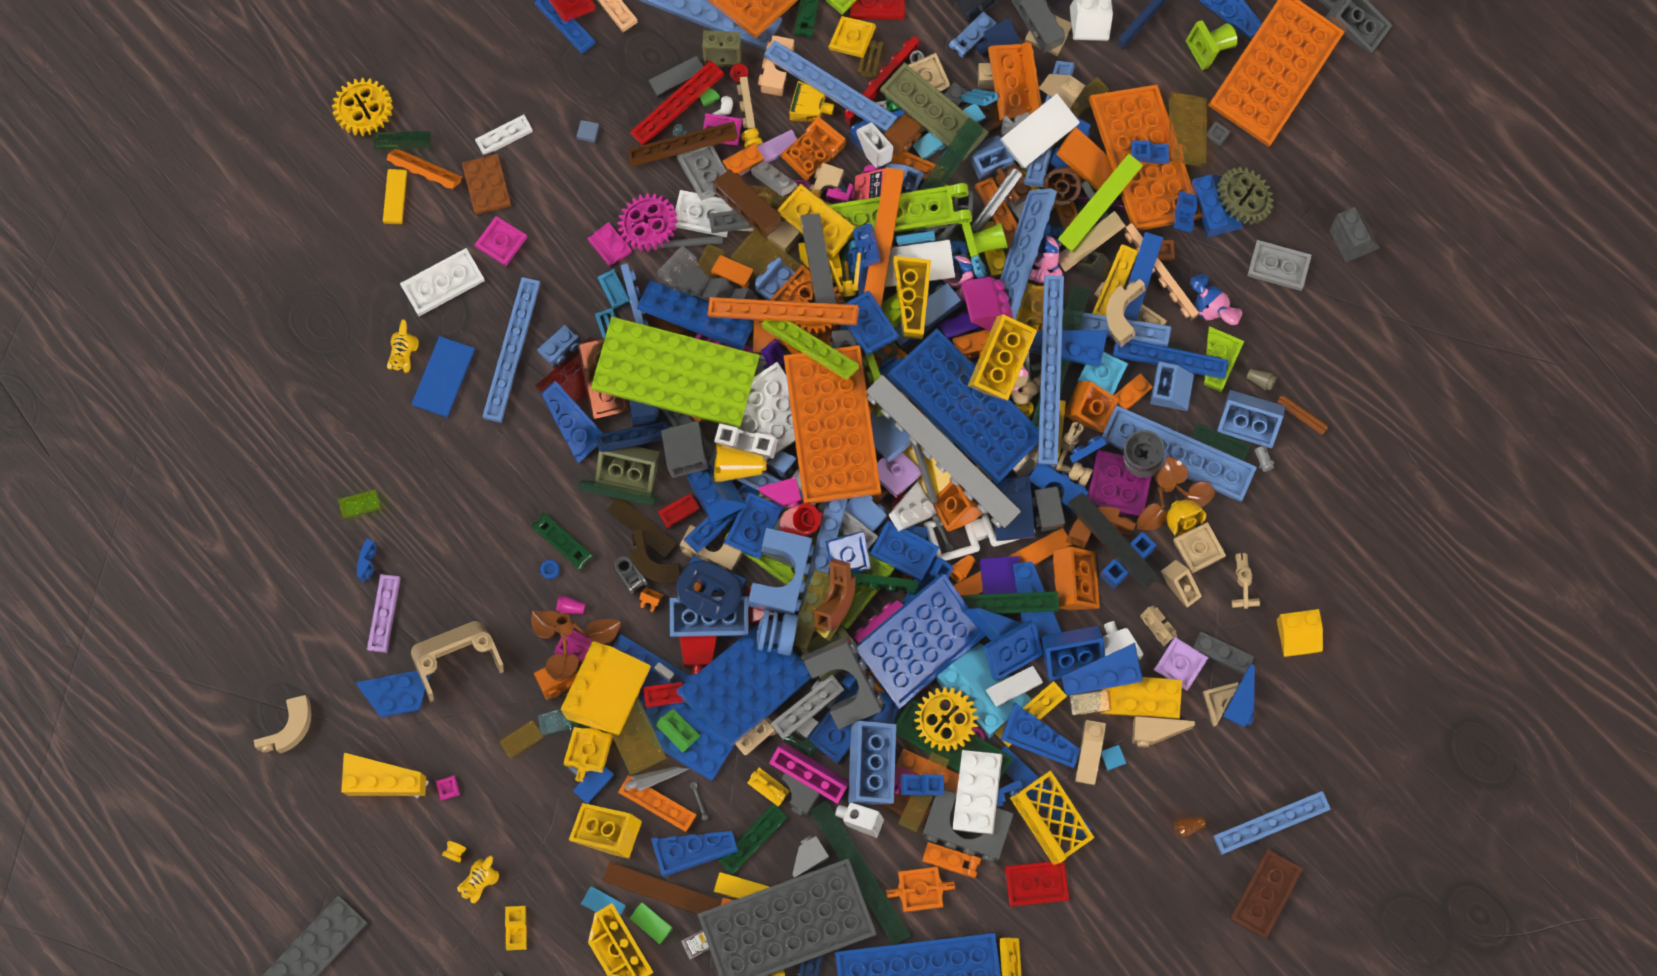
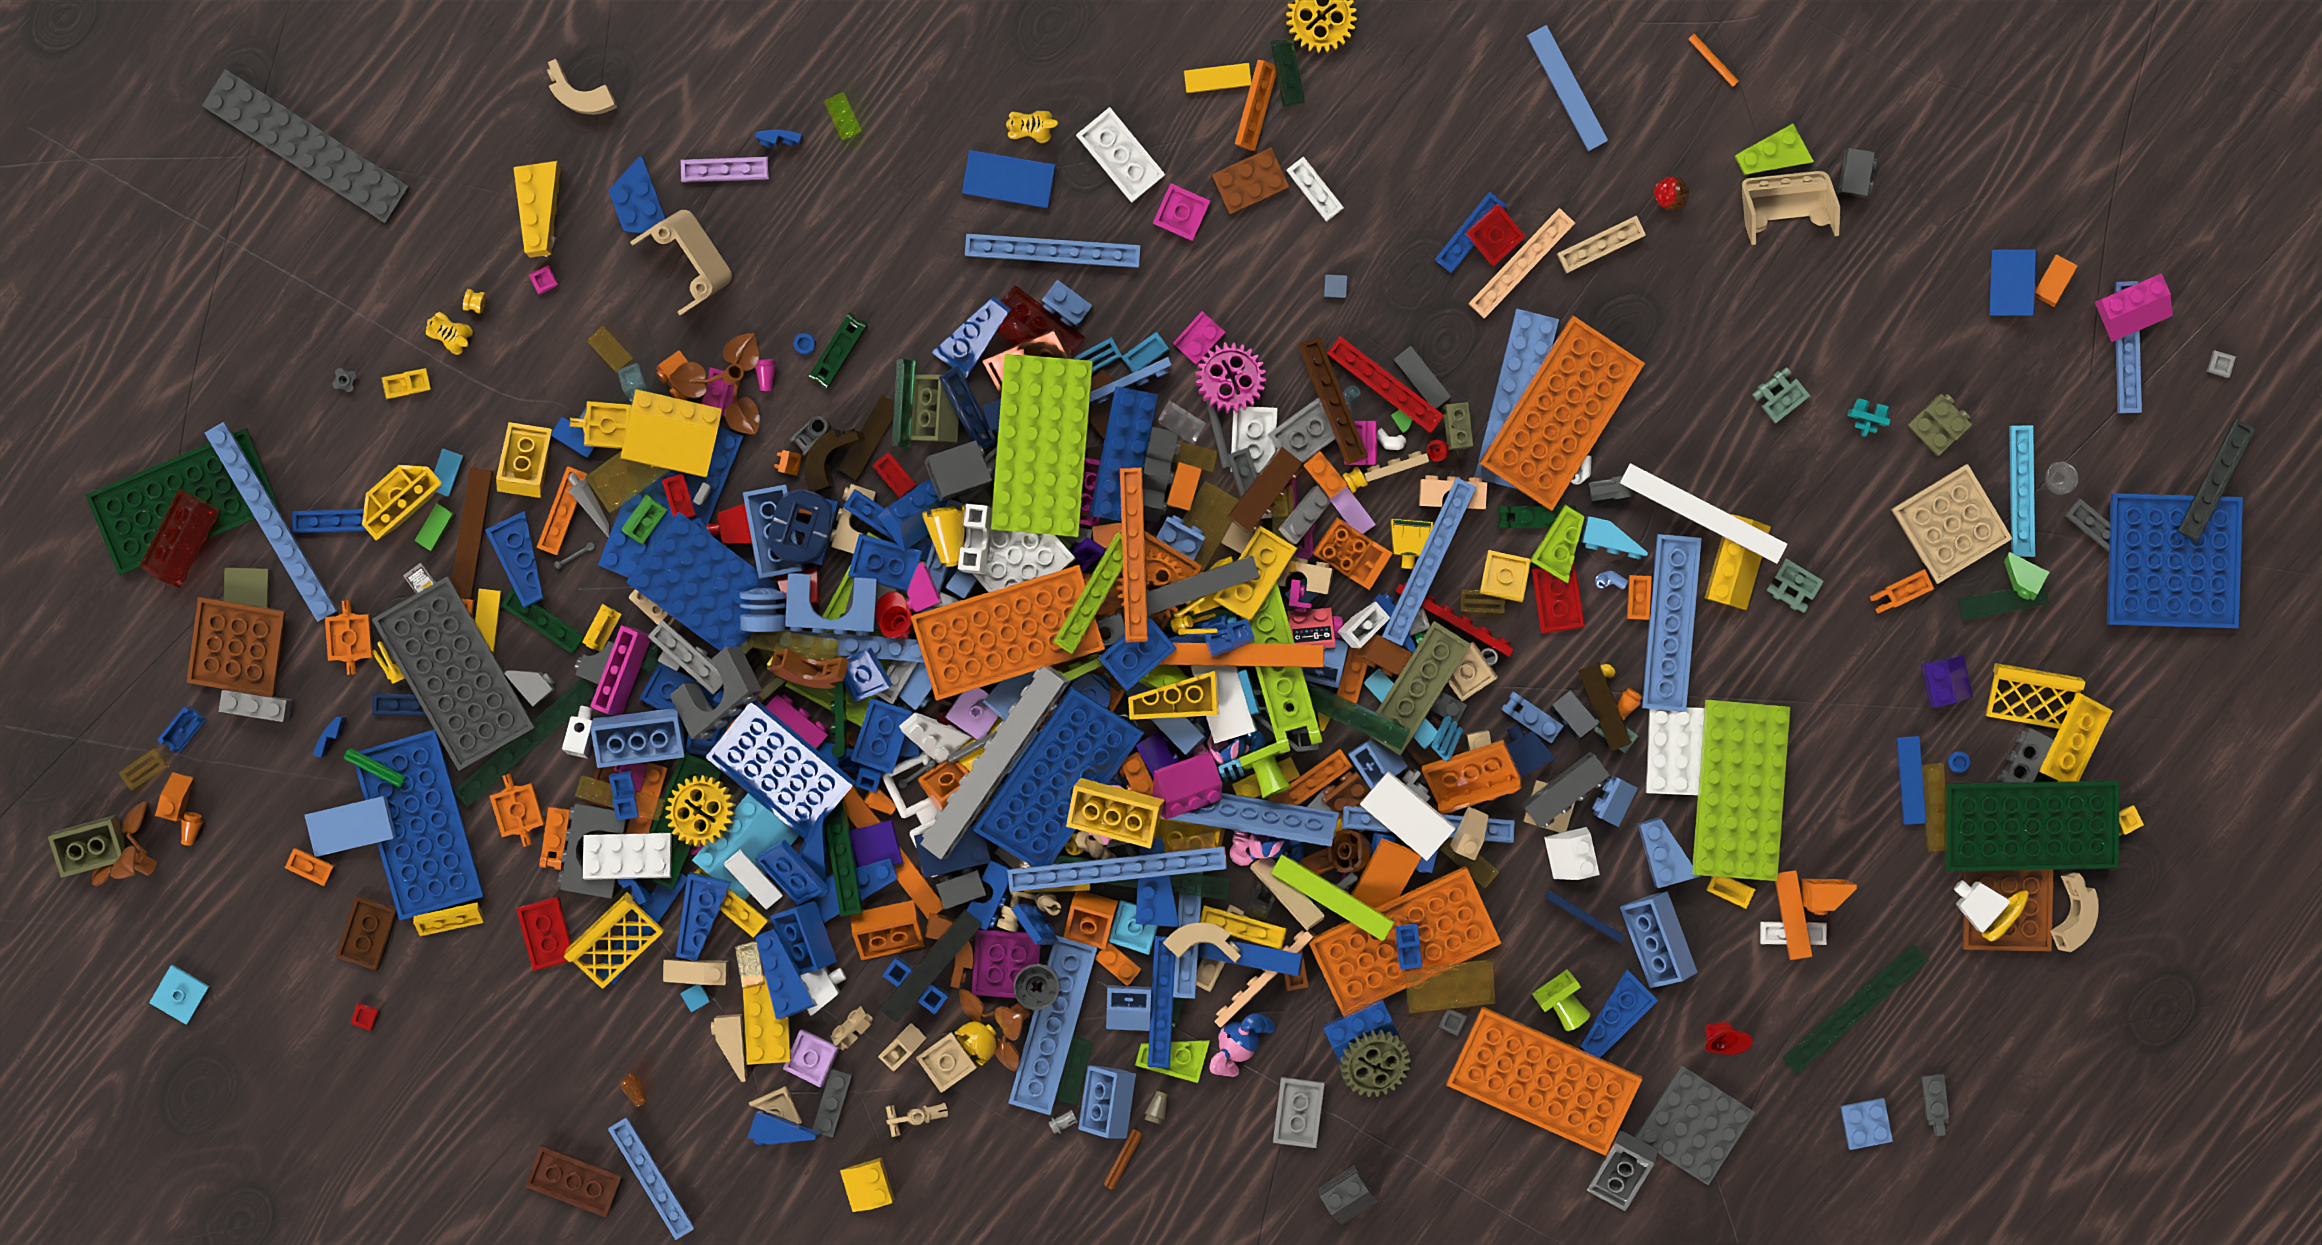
camera: 80 degrees right, 15 degrees up
(996, 200) = (1318, 777): light grey axle -> none
(1184, 211) = (1342, 996): blue slope -> none

